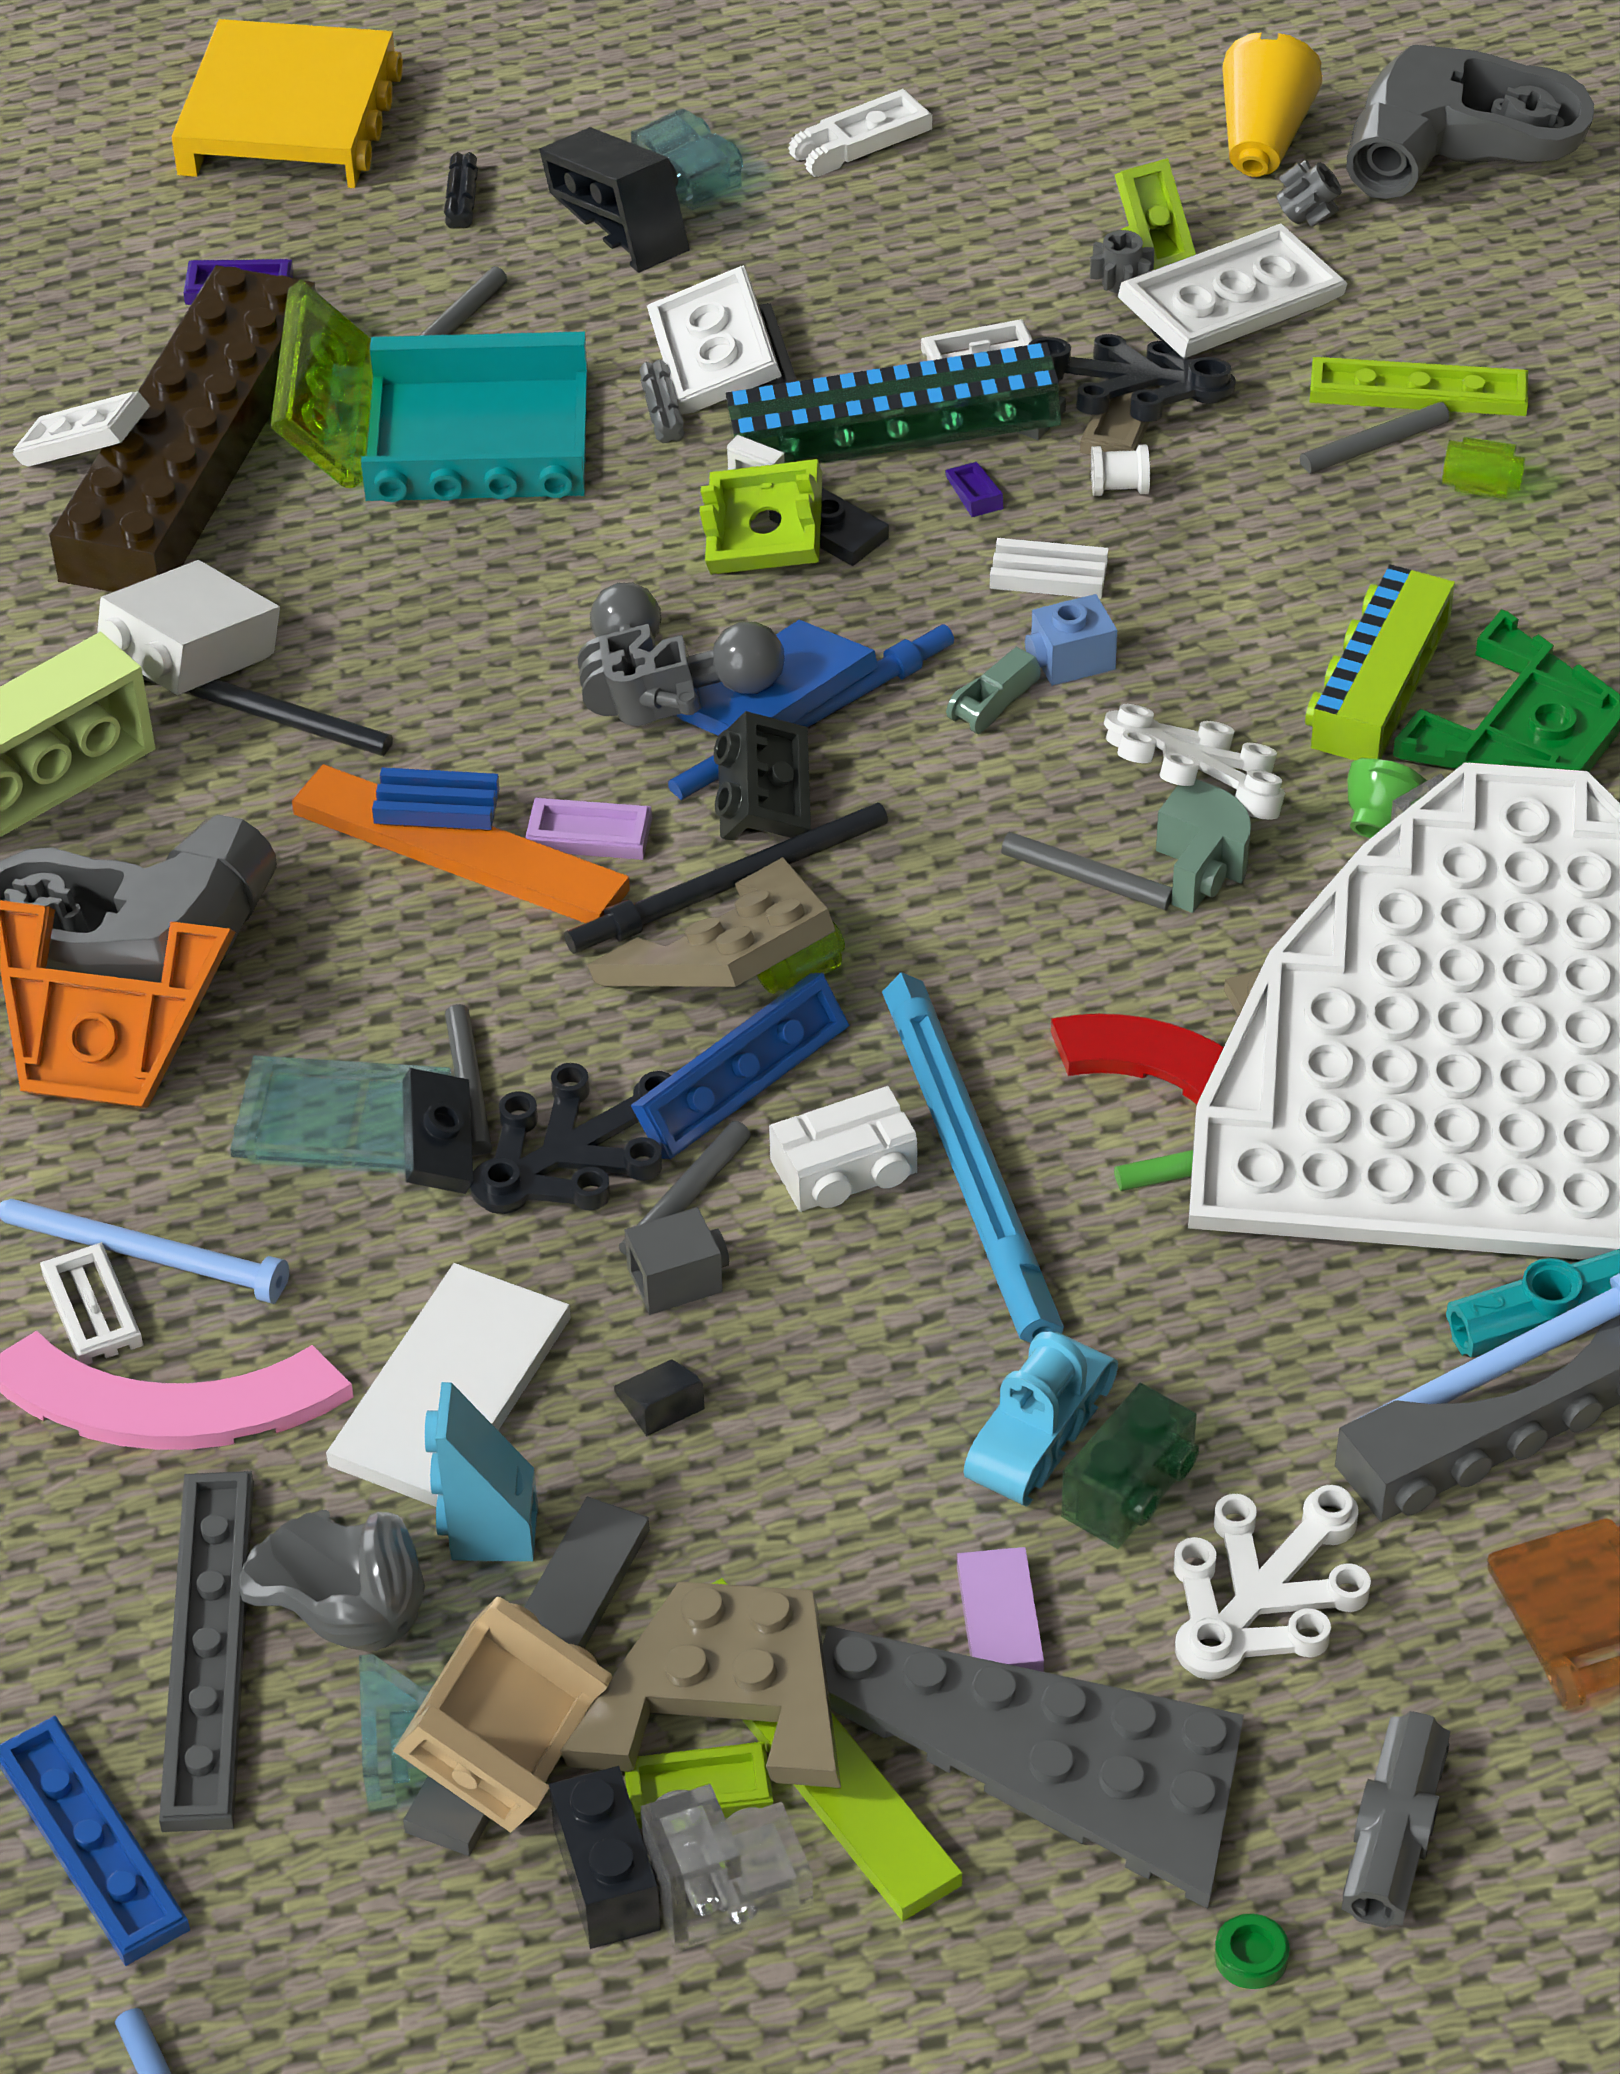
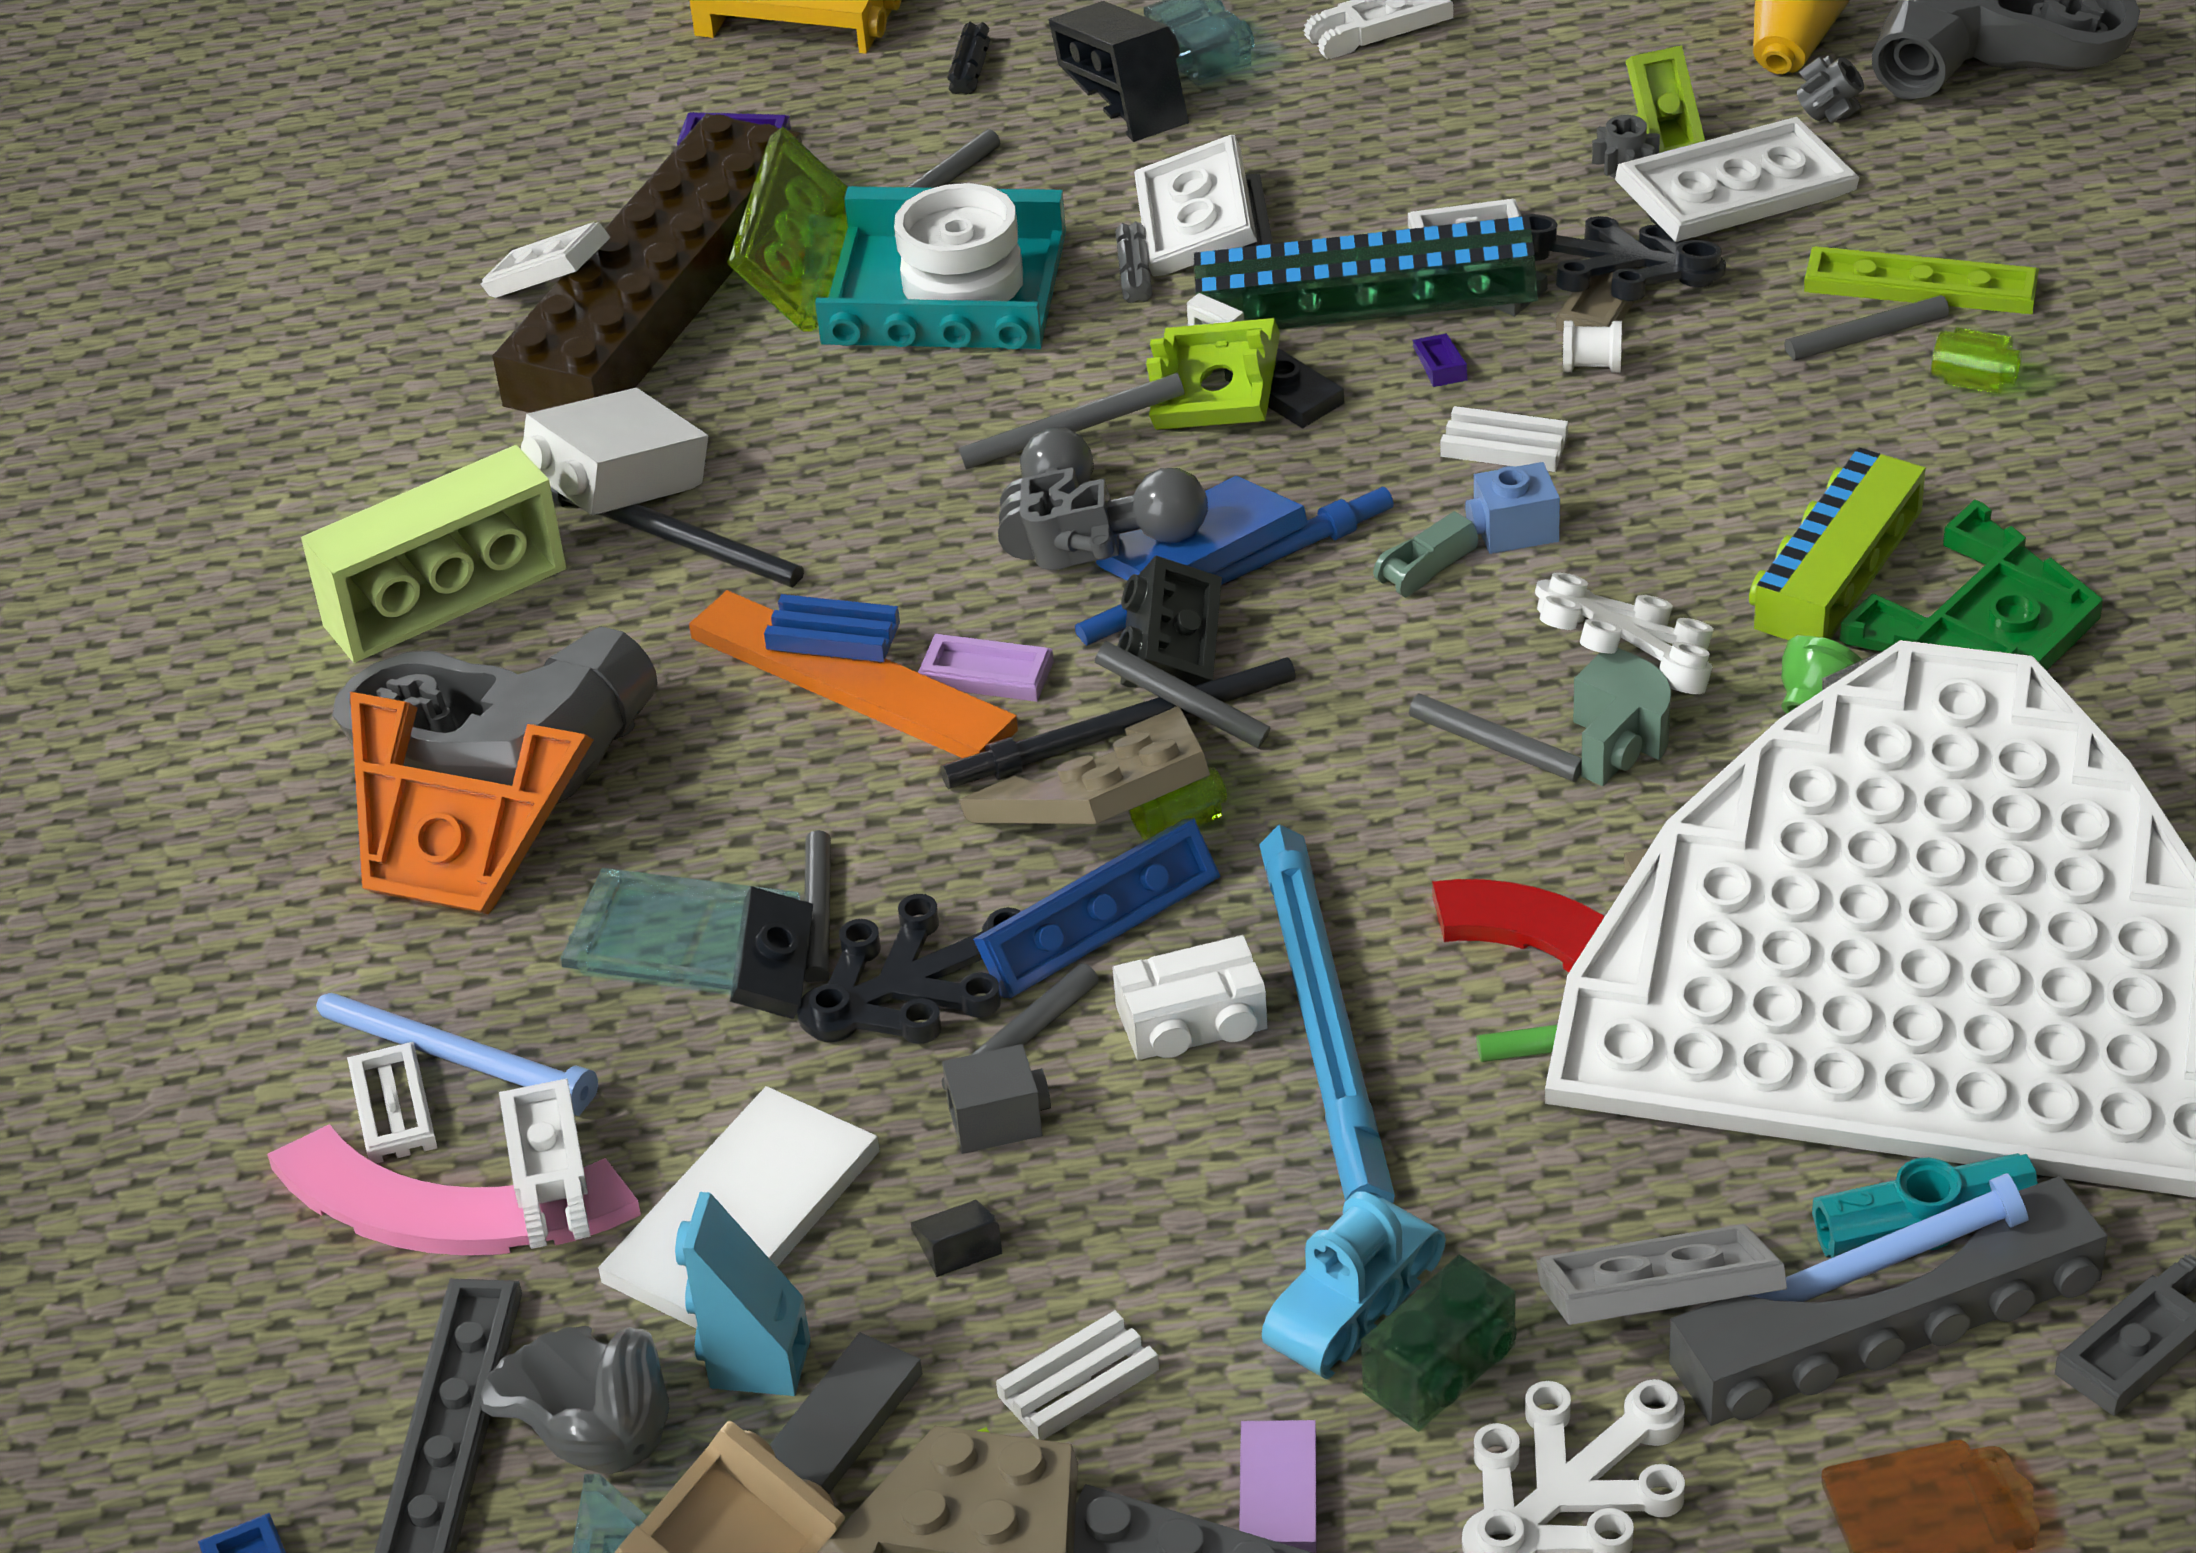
camera: 10 degrees right, 5 degrees down
(258, 1348) = (545, 1156): none -> white hinge
(495, 396) = (959, 244): none -> white wheel
(632, 571) = (1074, 419): none -> dark grey bar
(786, 847) = (1182, 694): none -> dark grey bar
(817, 1475) = (1072, 1365): none -> white tile
(1320, 1385) = (1660, 1274): none -> light grey tile

